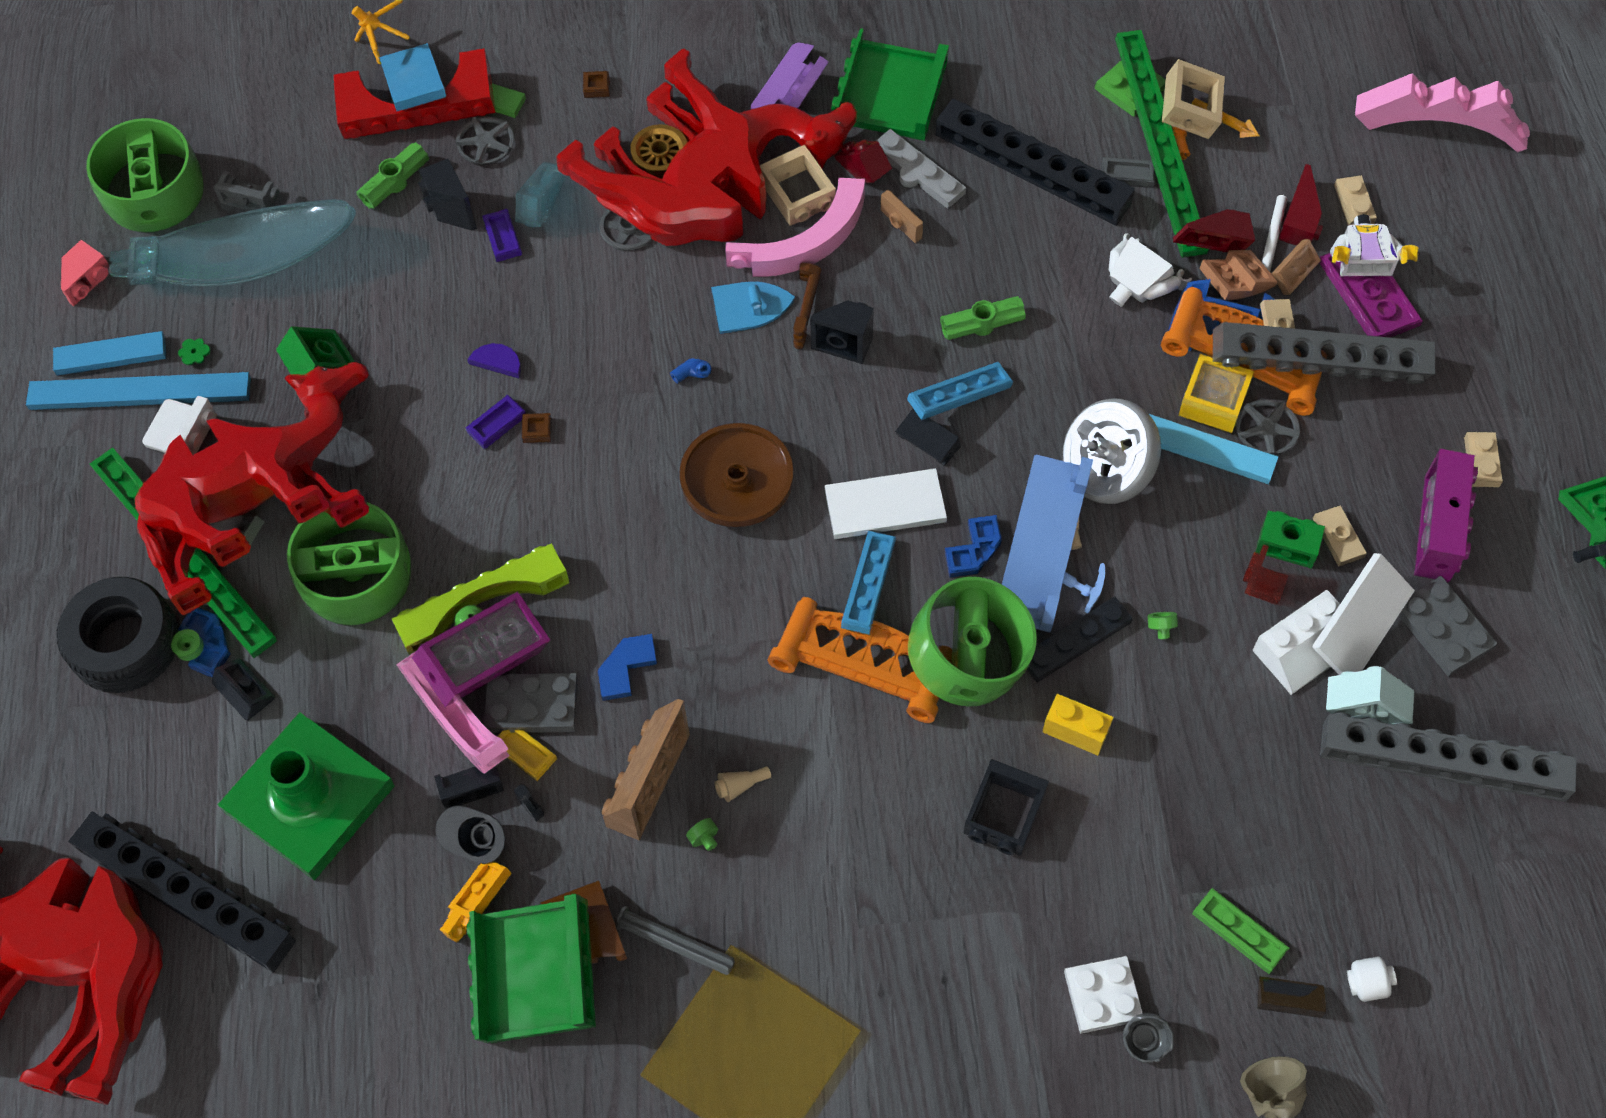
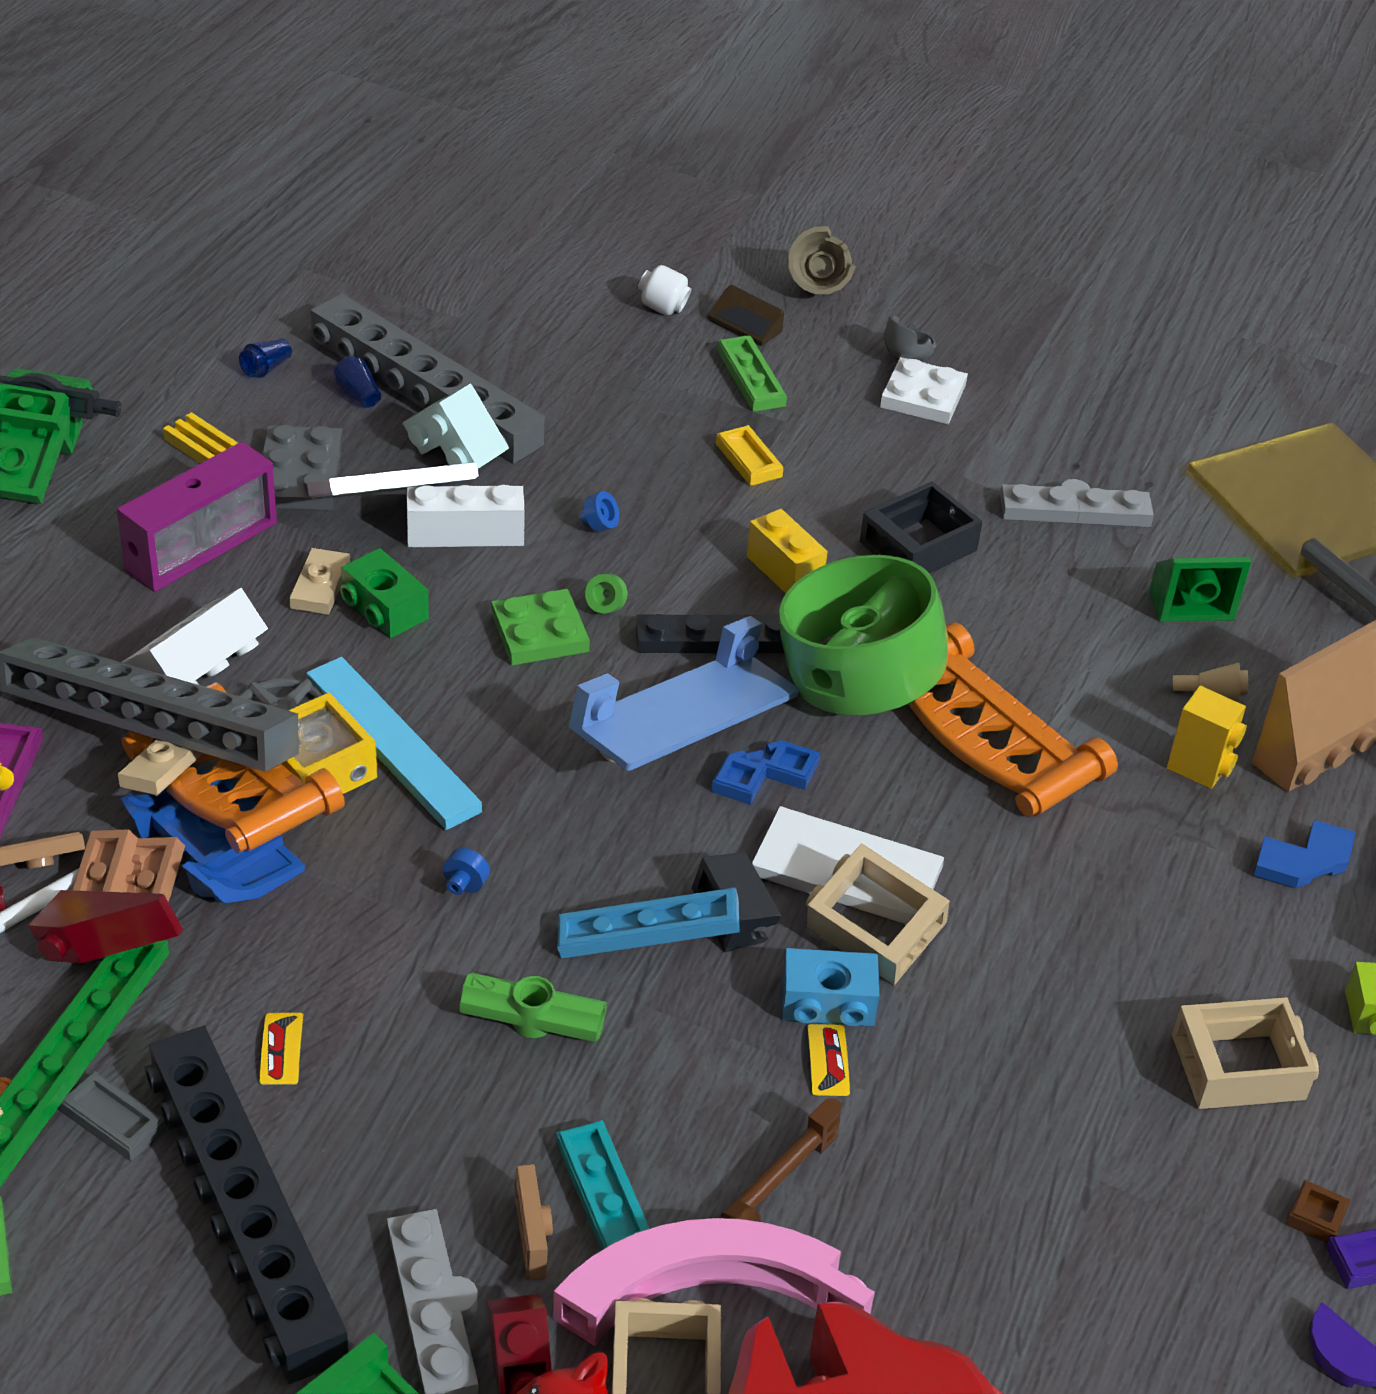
camera: 155 degrees left, 20 degrees down
(612, 461) = (1212, 1088): none -> tan window
(692, 368) = (1022, 1173): blue arm -> none
(703, 834) = (1283, 654): bright green tile -> none
(719, 699) = (1206, 737): none -> yellow piece
(736, 474) = (1044, 972): reddish brown dish -> none
(749, 305) = (874, 1230): dark azure shield -> none
(789, 859) = (1198, 588): none -> green slope
(824, 384) = (828, 1060): none -> yellow sticker
(837, 423) = (830, 987): none -> dark azure brick
(843, 330) = (763, 1068): black slope -> none
(845, 479) = (847, 936): none -> tan window
(868, 582) = (934, 784): dark azure tile -> none
(884, 257) = (601, 1183): none -> teal tile
(919, 924) = (1076, 504): none -> light grey hinge
(1078, 374) = (465, 871): none -> blue tile
(1086, 590) = (657, 661): light blue piece -> none
(1087, 246) = (281, 1048): none -> yellow sticker
(1130, 466) = (498, 744): wheel -> none
(1141, 273) = (257, 944): white torso -> none
(1176, 830) = (749, 455): none -> yellow tile
(1183, 579) = (540, 626): none -> bright green plate
(1223, 694) = (600, 511): none -> blue tile
(1263, 582) = (460, 570): clear red bracket -> none
(1355, 433) = (203, 640): none -> white slope
(1484, 725) = (356, 379): none -> clear blue cone
(1487, 460) = (73, 568): tan plate -> none
(1524, 604) = (202, 432): none -> yellow tile
(1568, 711) = (263, 357): none -> clear blue cone

